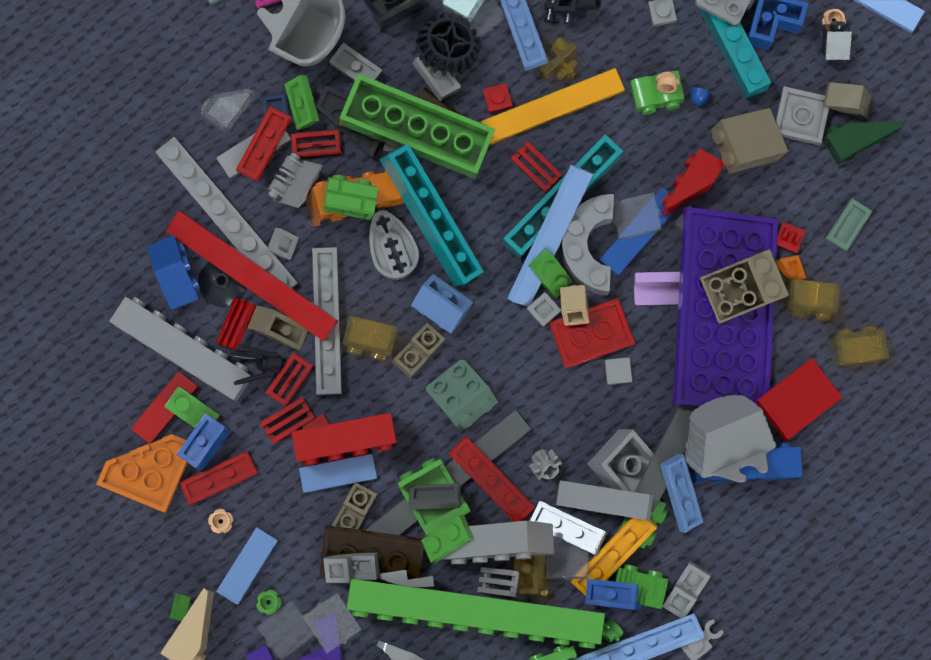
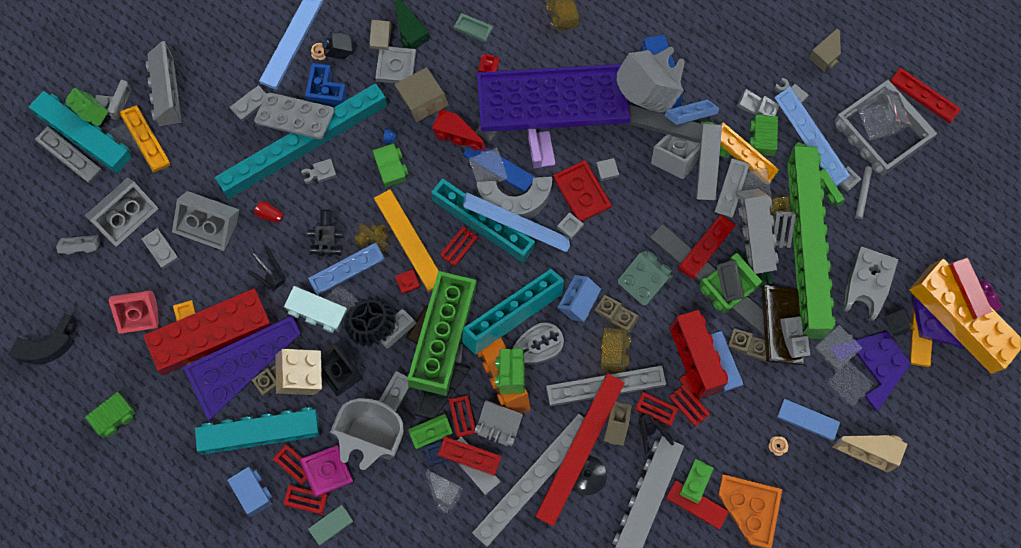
camera: 100 degrees left, 10 degrees down
(171, 270) = (586, 512): blue brick -> none
(180, 607) = (853, 465): bright green plate -> none
(203, 442) = (721, 466): blue panel -> none
(218, 478) = (744, 453): red tile -> none
(236, 324) = (618, 459): red tile -> none
(275, 602) = (832, 394): bright green plate -> none
(282, 243) = (549, 429): light grey plate -> none
(400, 578) = (796, 298): light grey slope -> none
(447, 539) = (762, 264): bright green plate -> none
(545, 464) = (688, 209): light grey gear -> none
(550, 273) = (543, 221): bright green plate -> none
(574, 305) = (564, 202): tan brick -> none
(612, 594) = (776, 148): blue panel -> none
(667, 82) = (384, 153): light nougat plate -> none
(744, 286) = (533, 82): dark tan slope -> none
(791, 267) = (511, 60): orange tile -> none
(798, 399) = (607, 45): red tile -> none
(812, 298) = (532, 43): clear yellow brick -> none

